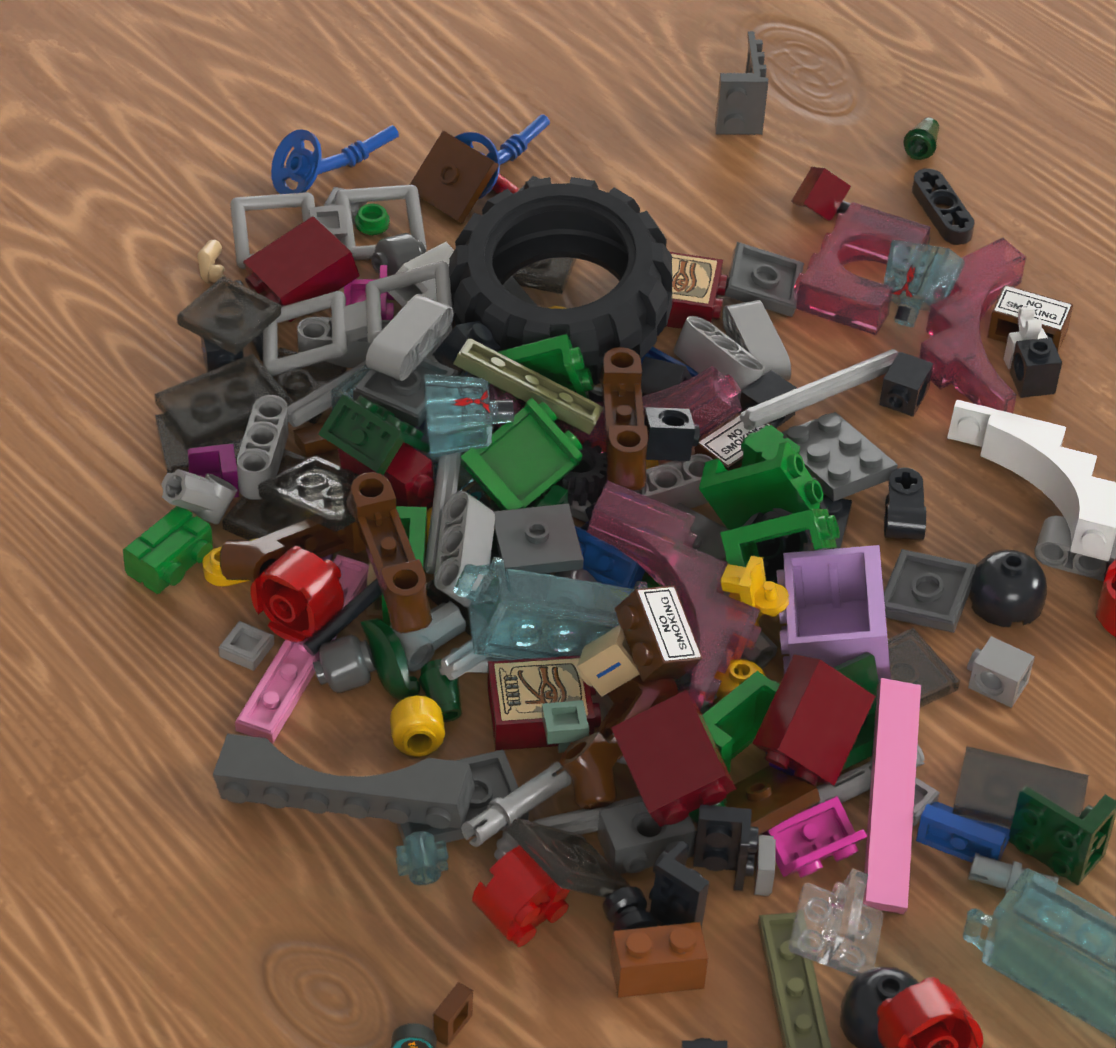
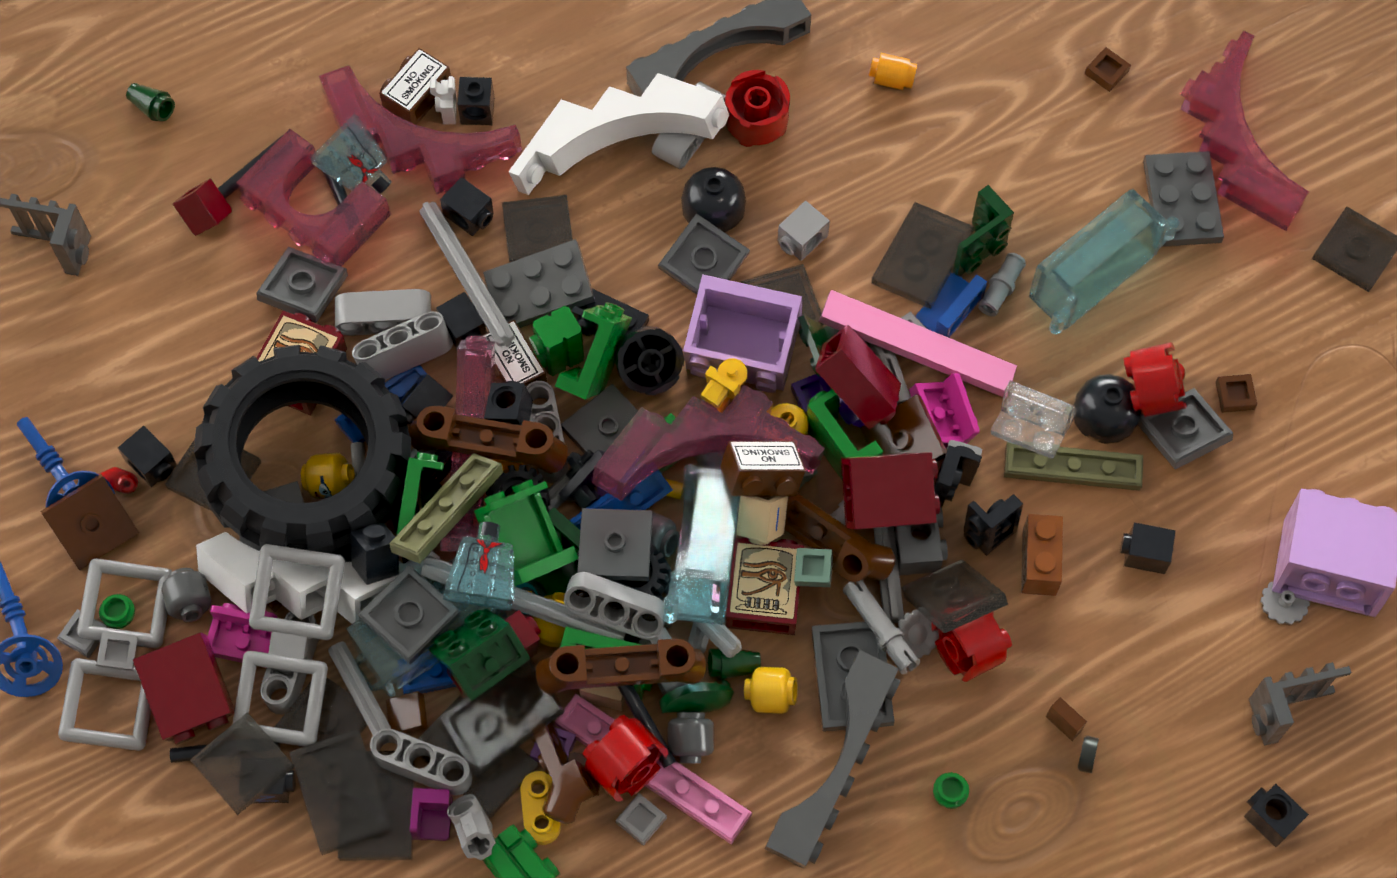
camera: 75 degrees left, 20 degrees up
(206, 259) = (130, 777): tan arm -> none
(339, 915) = (951, 790): none -> green plate
(409, 337) = (369, 595): light grey beam -> none
(422, 858) = (912, 712): clear light blue gear -> none
(628, 909) = (996, 565): black wheel -> none
(741, 542) = (671, 345): green panel -> none
(905, 506) = (612, 250): black piece -> none
(914, 445) = (536, 225): none -> clear smoke tile
(963, 224) = (232, 104): black beam -> none

